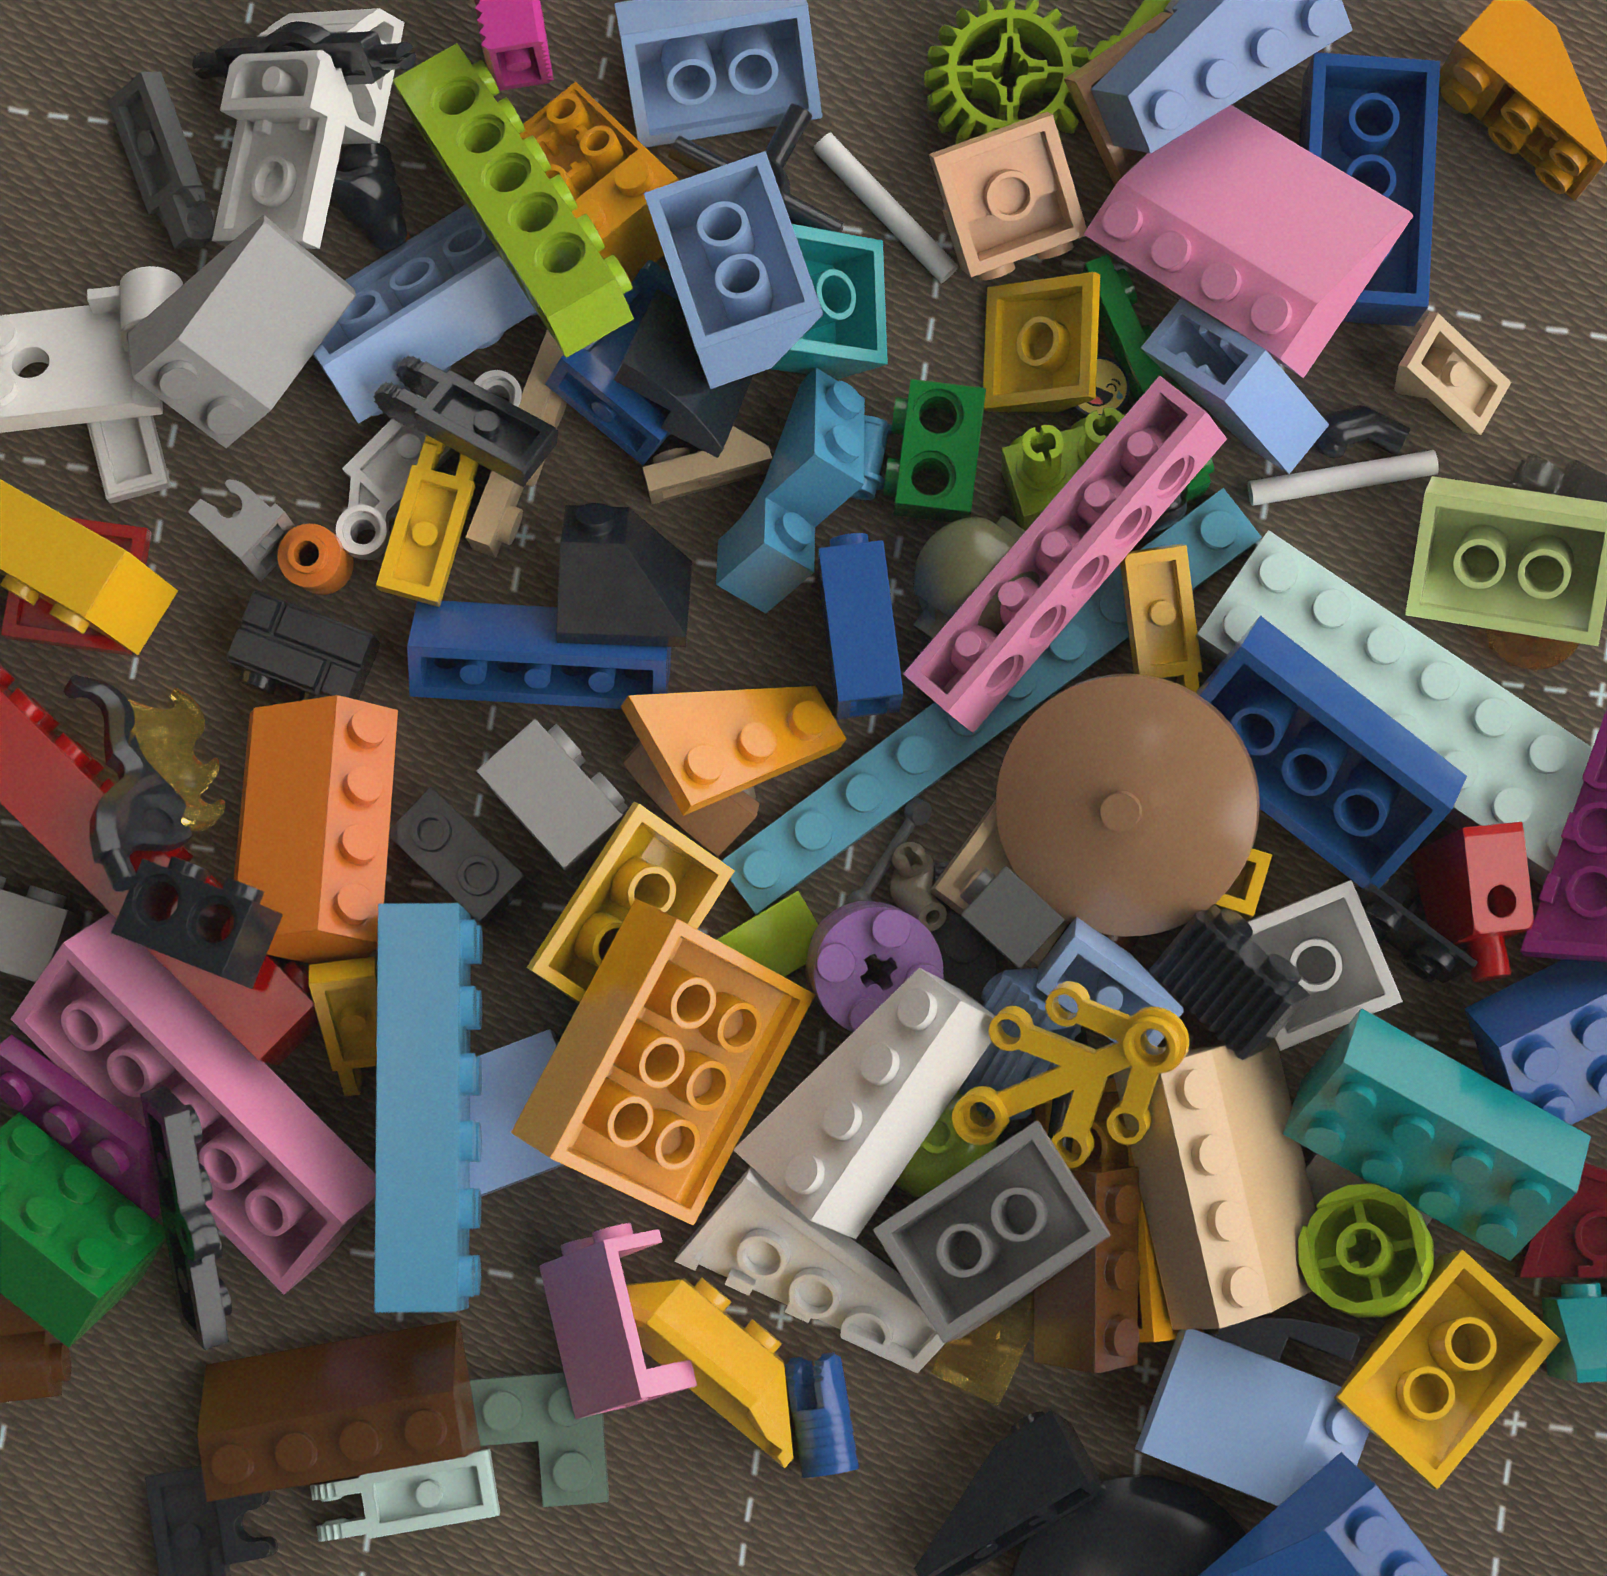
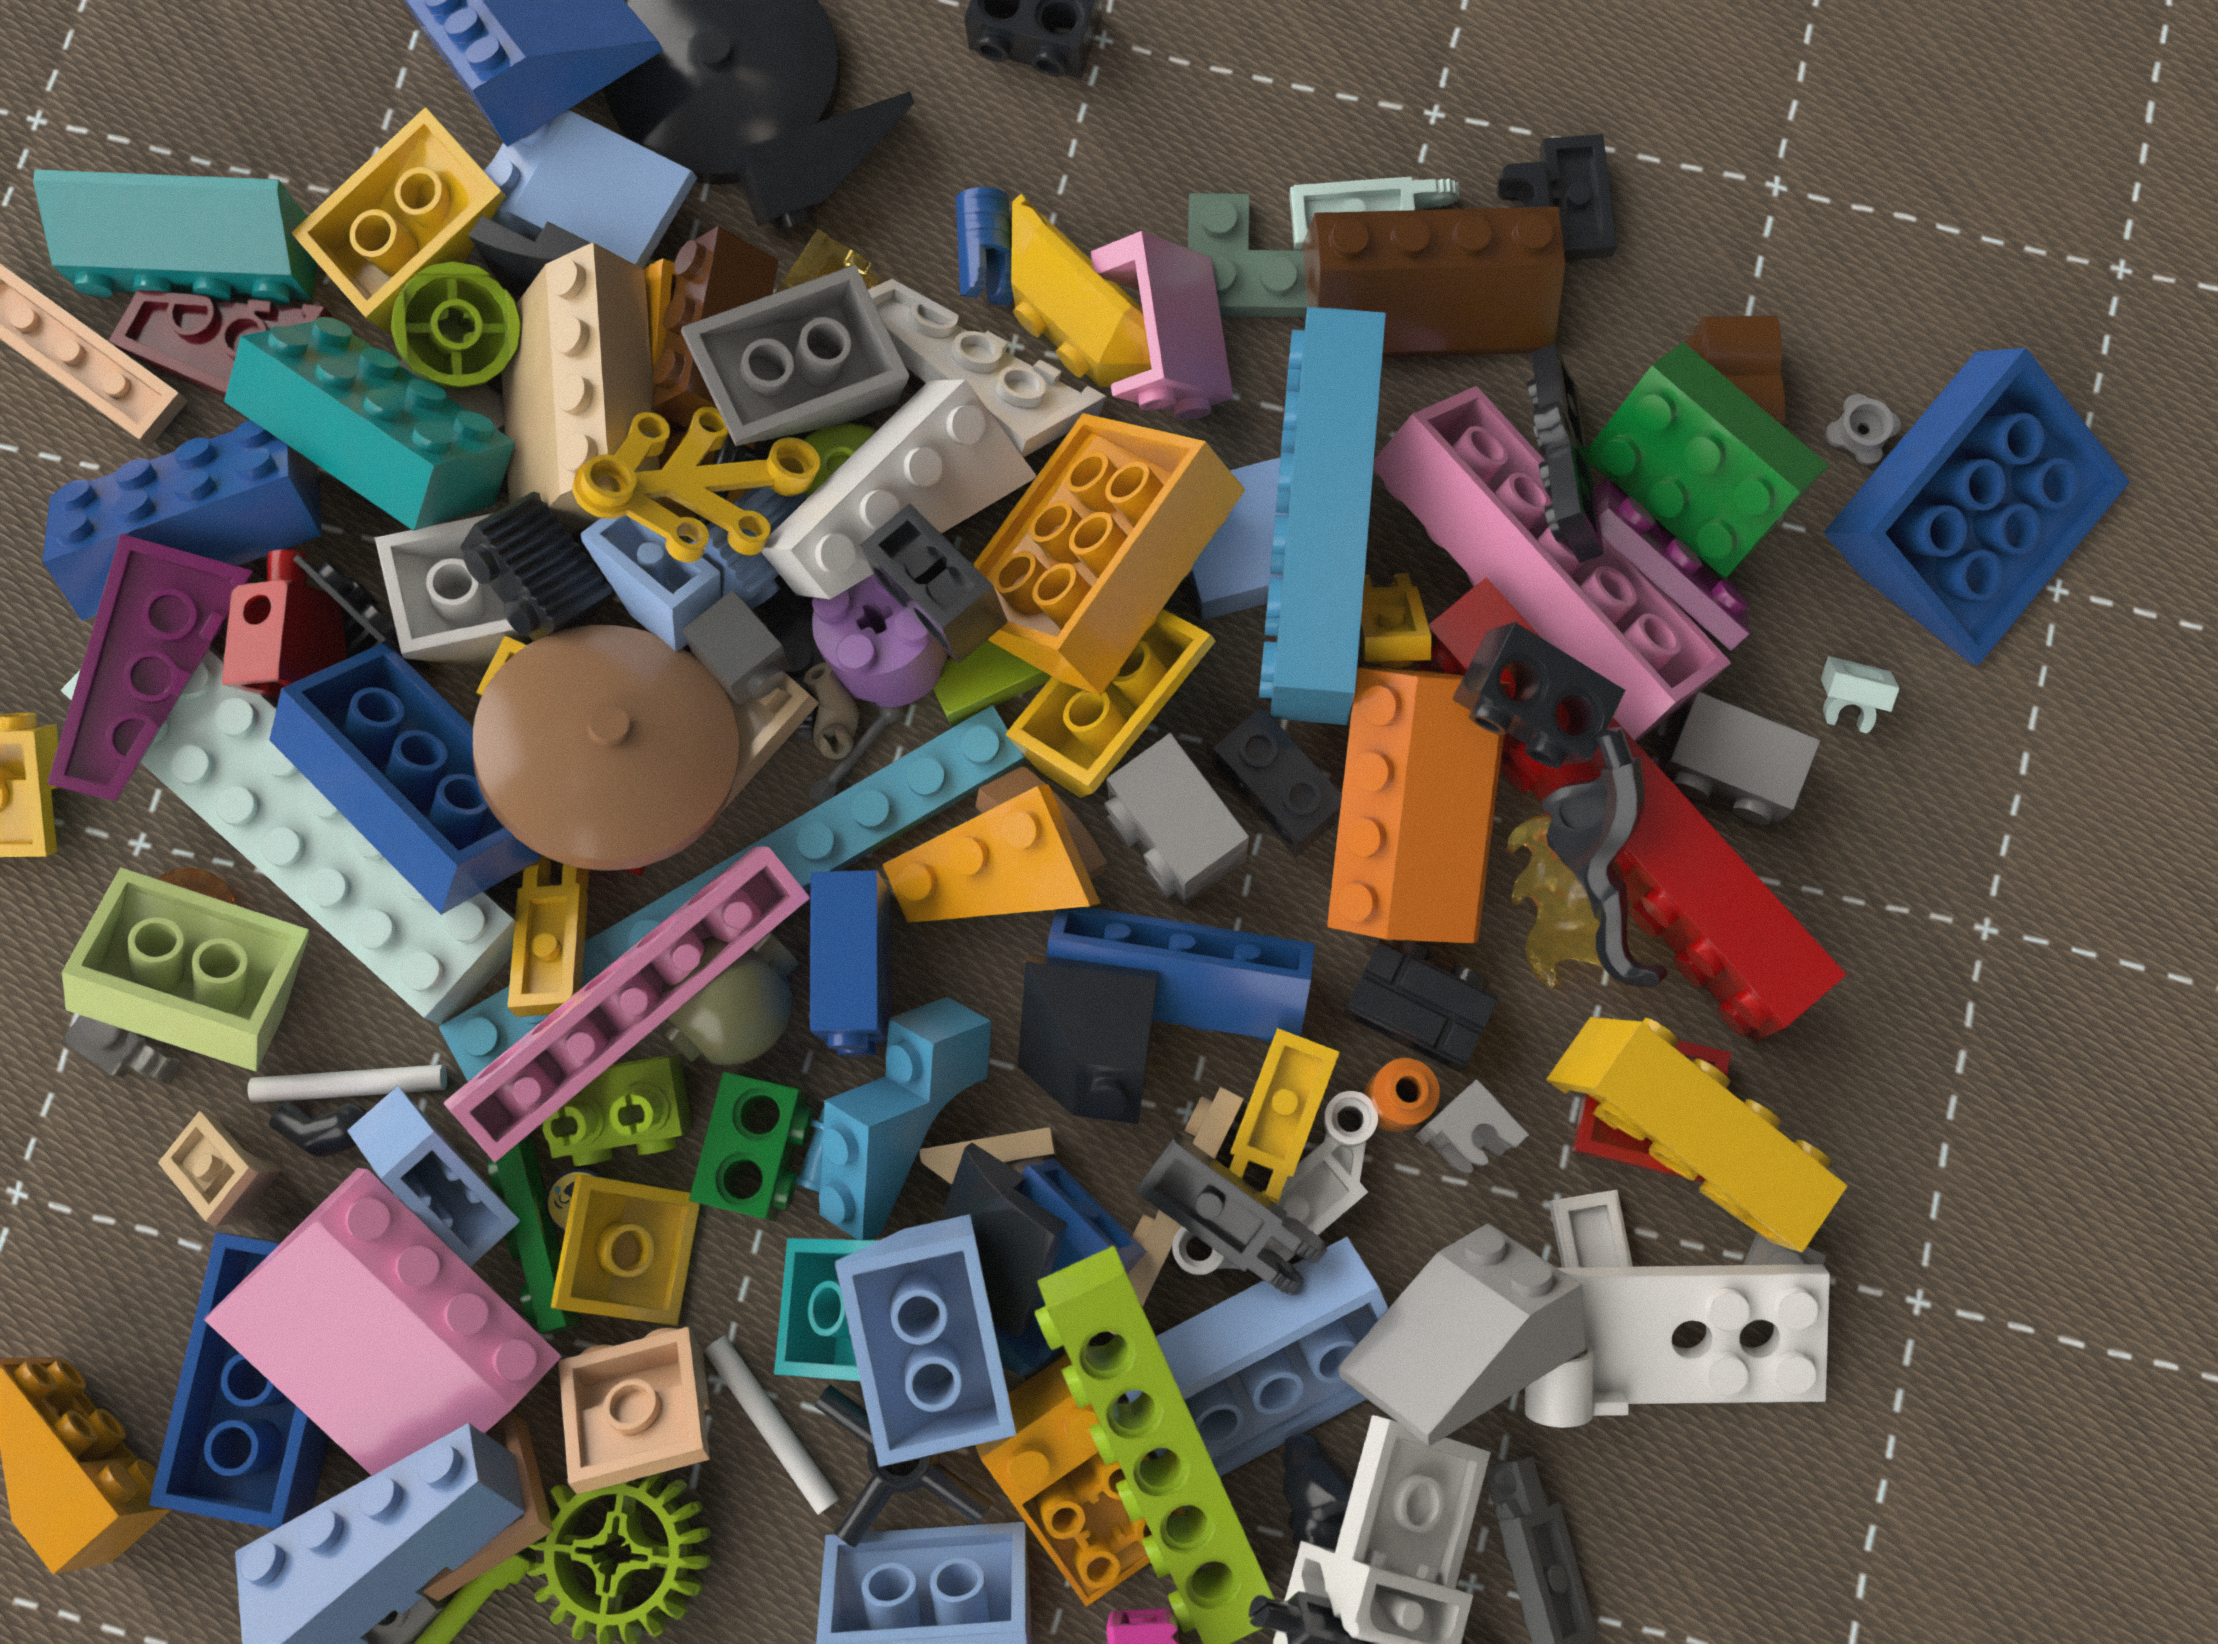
camera: 165 degrees left, 5 degrees down
(813, 987) = (934, 583): none -> black brick

